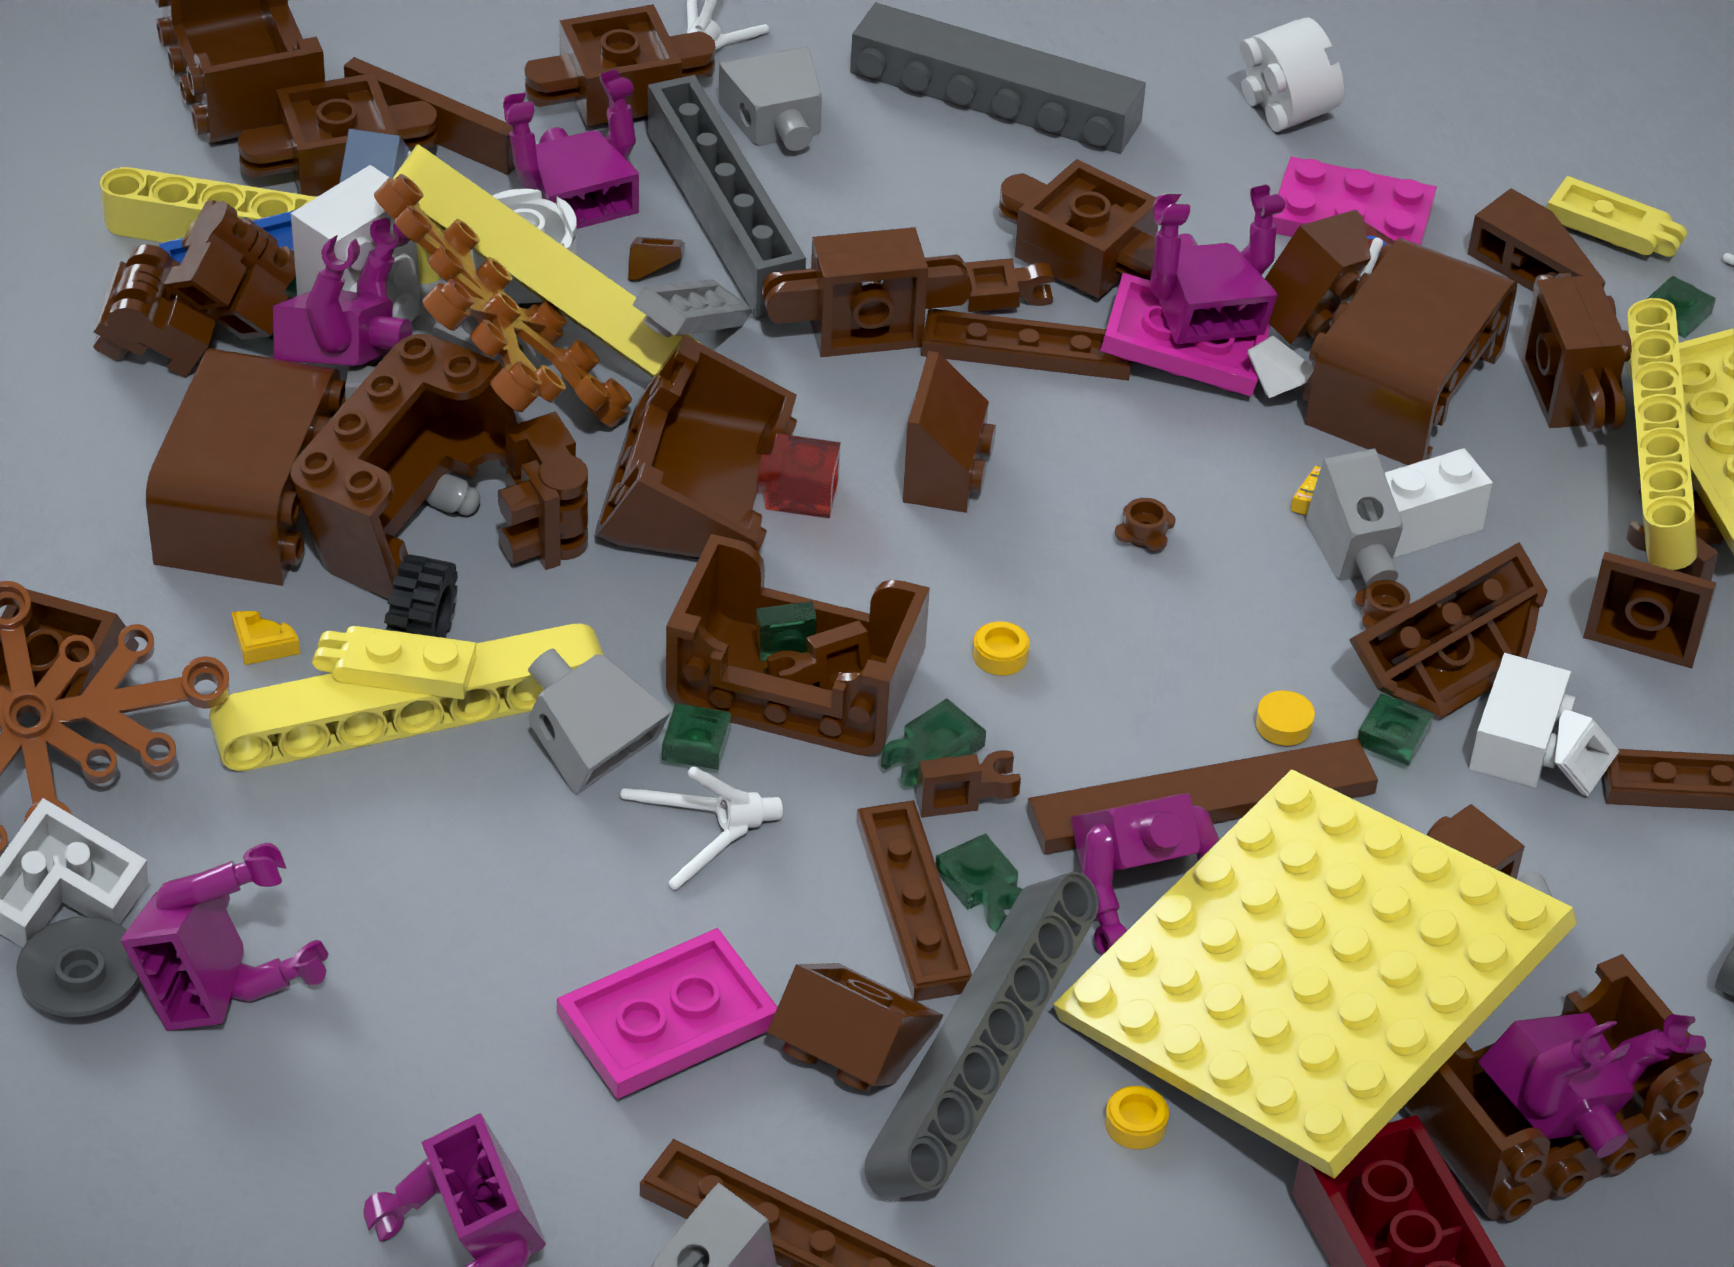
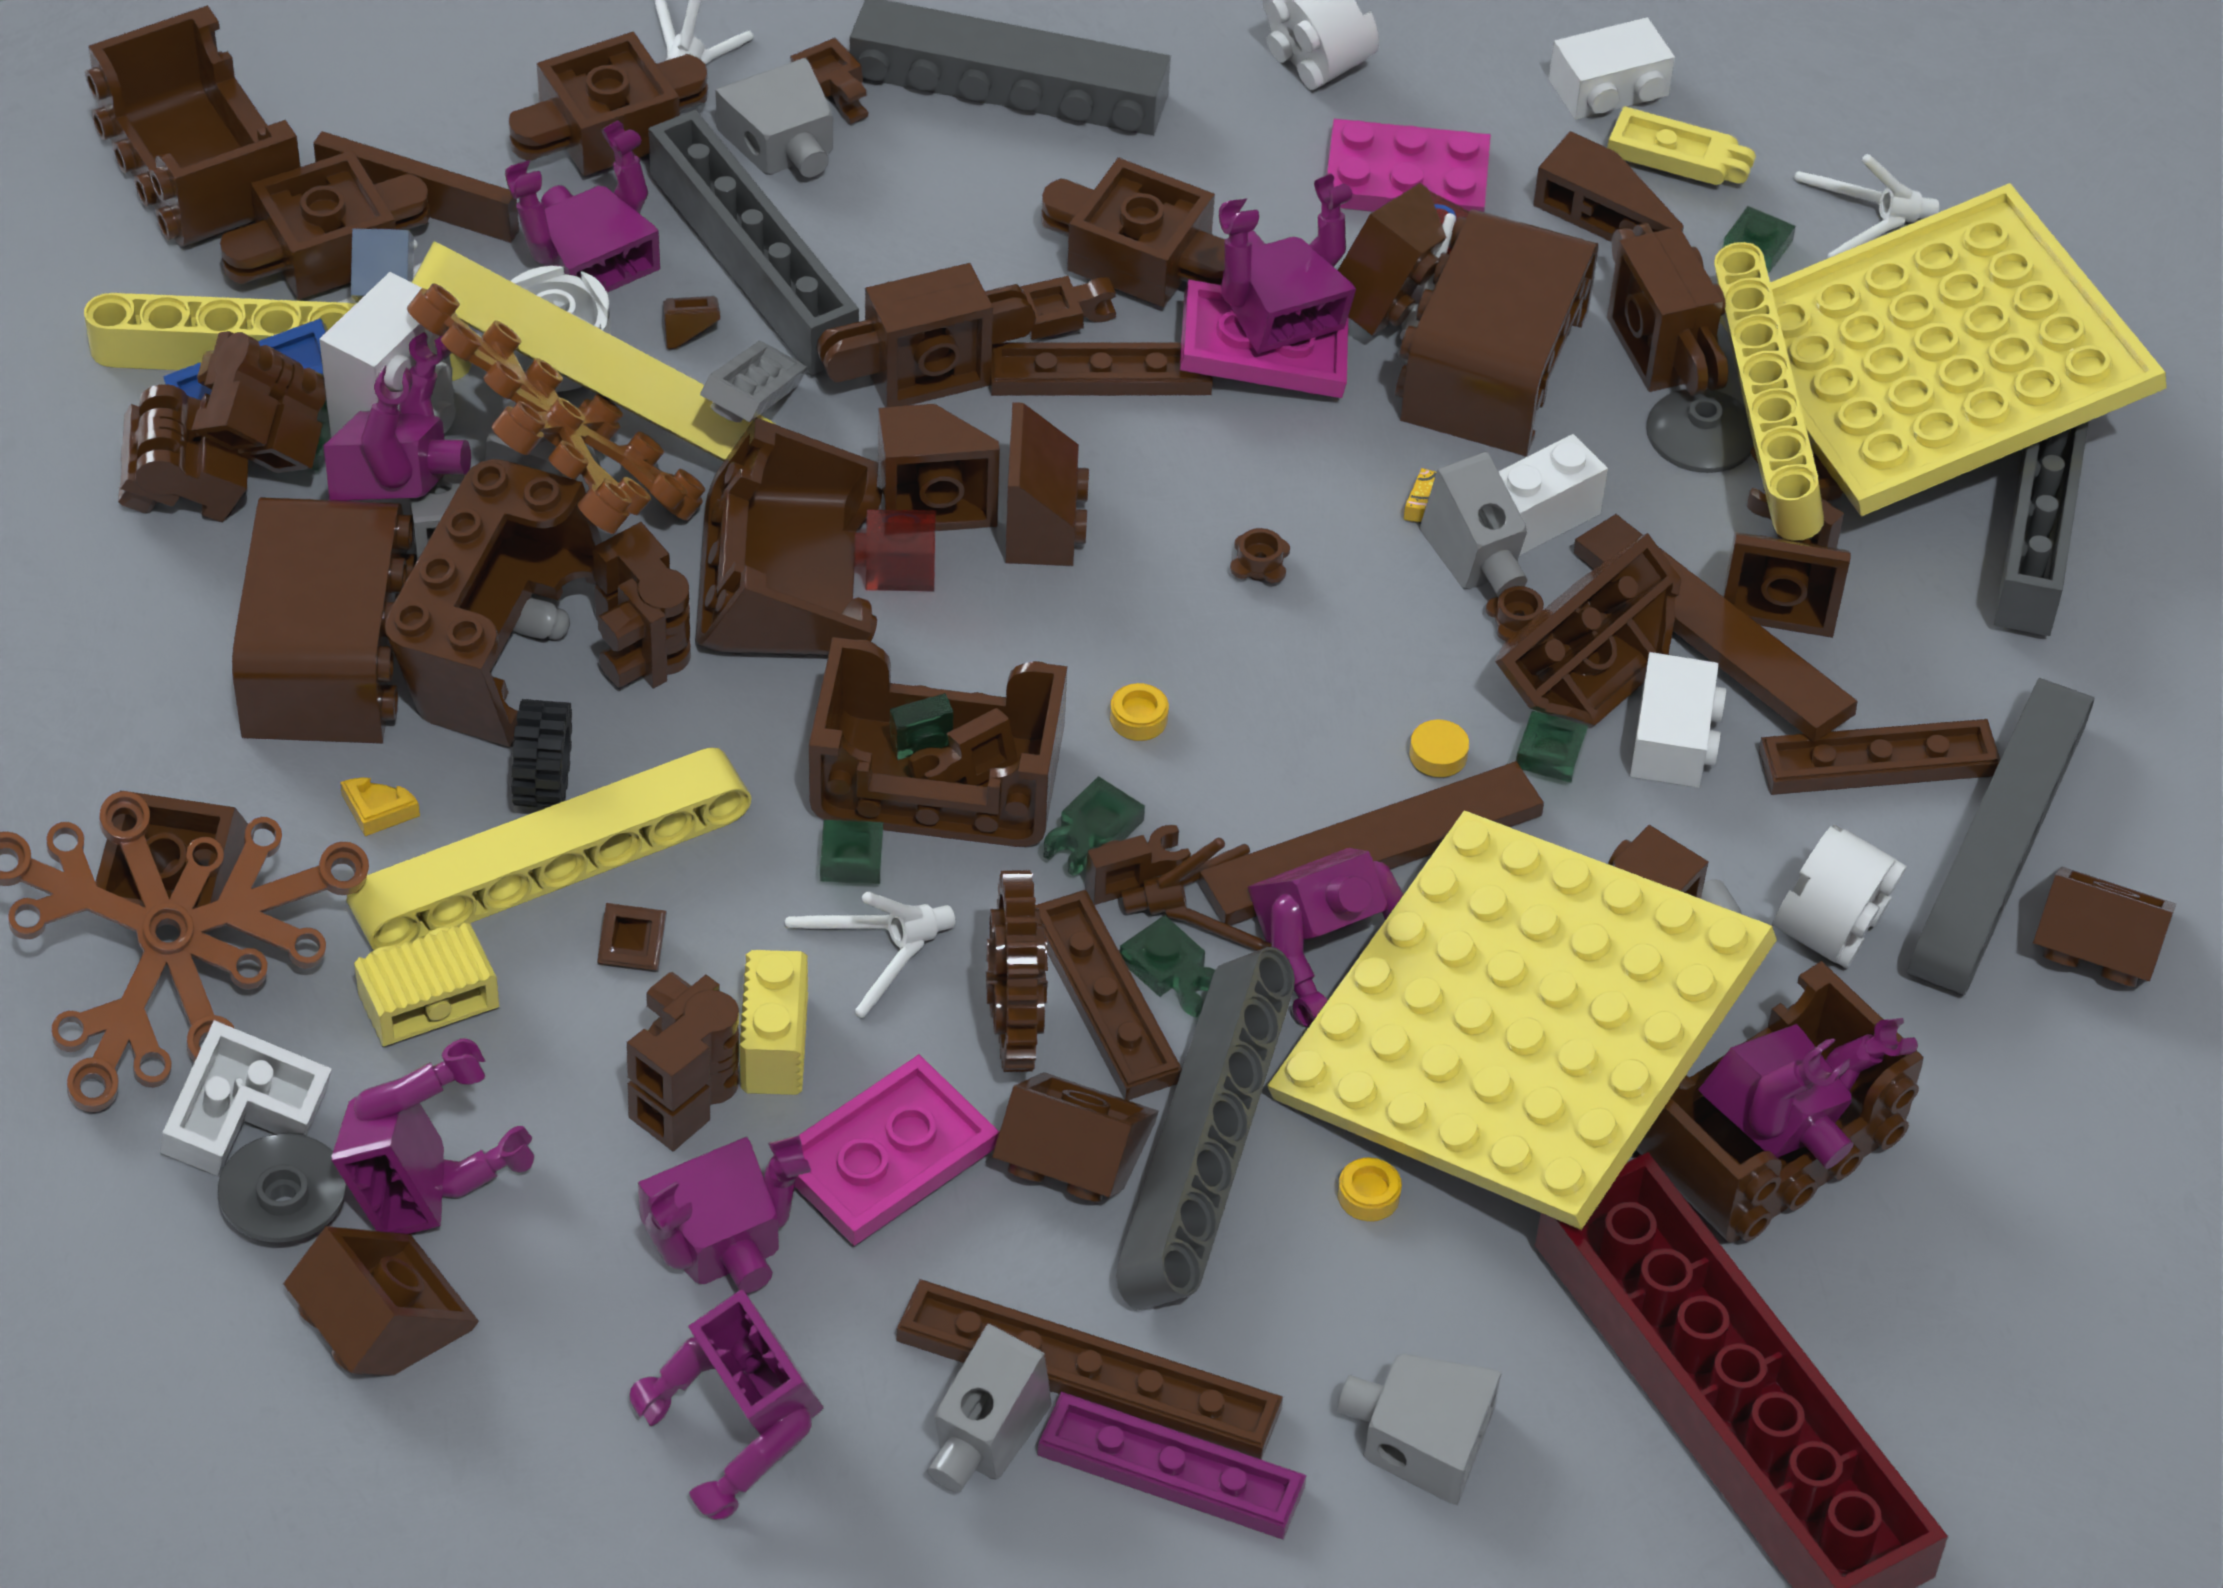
camera: 10 degrees left, 5 degrees up
(143, 1082) = (377, 1299): none -> reddish brown slope
(264, 800) = (426, 983): none -> light yellow brick
(397, 661) = (533, 816): light yellow hinge -> none
(470, 785) = (632, 937): none -> reddish brown slope
(489, 902) = (683, 1058): none -> reddish brown hips
(492, 1047) = (721, 1212): none -> magenta torso
(584, 879) = (774, 1022): none -> light yellow brick
(591, 716) = (742, 847): light grey torso -> none
(821, 872) = (1016, 971): none -> reddish brown gear
(838, 69) = (838, 76): none -> reddish brown plate
(851, 401) = (937, 465): none -> reddish brown slope
(994, 811) = (1168, 894): none -> reddish brown plant
(1278, 366) = (1367, 363): white slope -> none
(1561, 142) = (1611, 68): none -> white brick
(1583, 750) = (1742, 744): white slope -> none
(1593, 467) = (1700, 431): none -> dark grey dish
(1597, 661) = (1736, 642): none -> reddish brown tile
(1655, 900) = (1839, 895): none -> white brick

